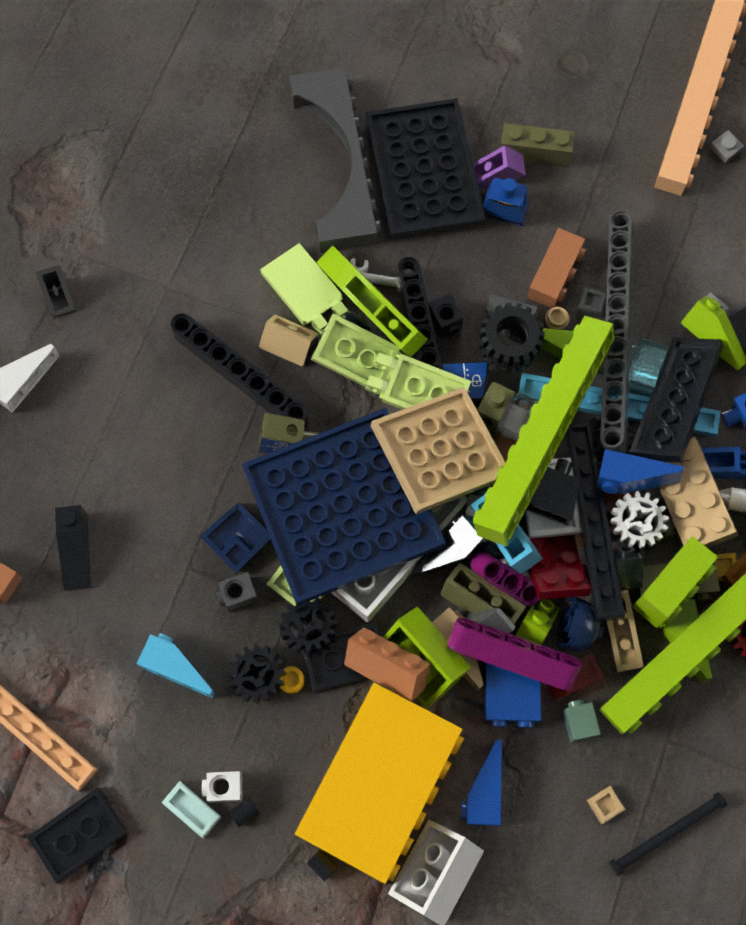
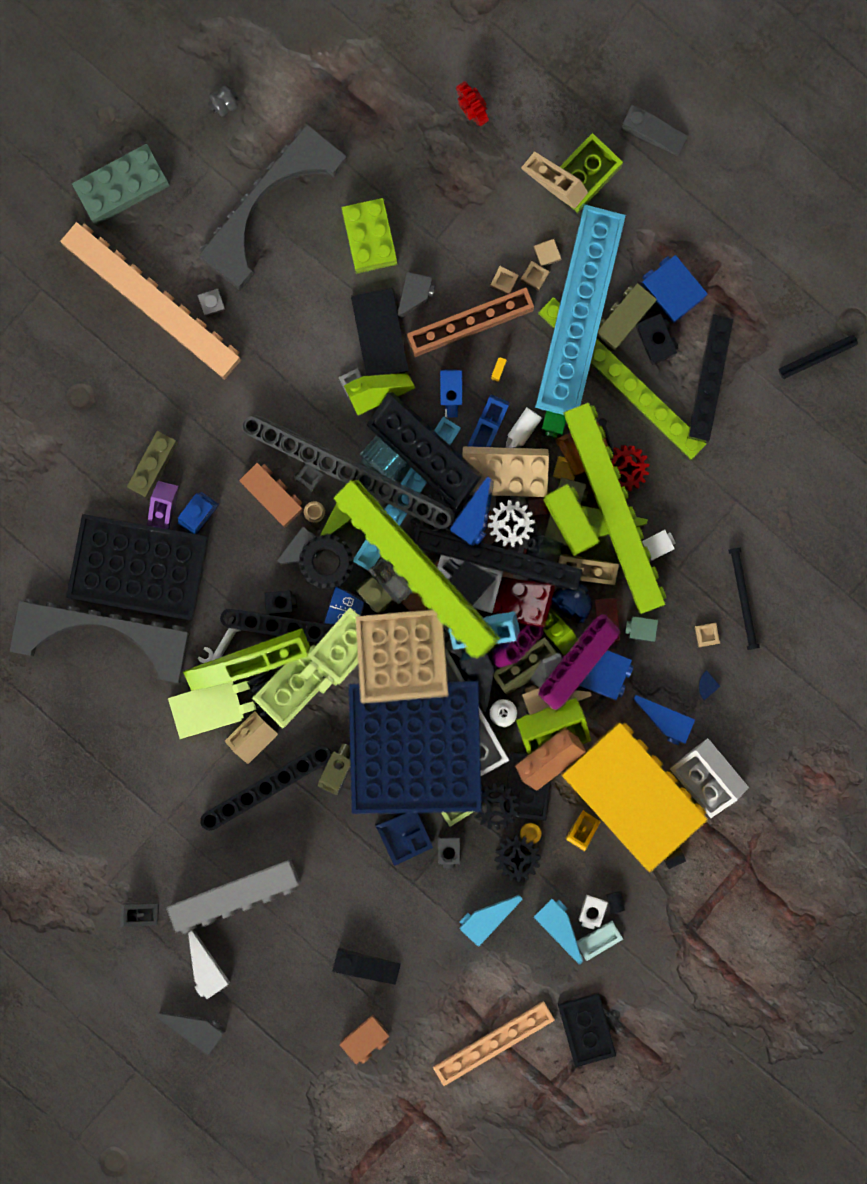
camera: 65 degrees left, 15 degrees up
(107, 376) = (233, 895): none -> light grey brick
(192, 752) = (559, 926): none -> medium azure slope
(316, 739) = (583, 830): none -> yellow slope
(419, 585) = (501, 705): none -> white head
(546, 828) = (707, 685): none -> dark blue tile
(668, 548) = (537, 506): none -> clear red plate
(687, 704) = (659, 544): none -> white brick

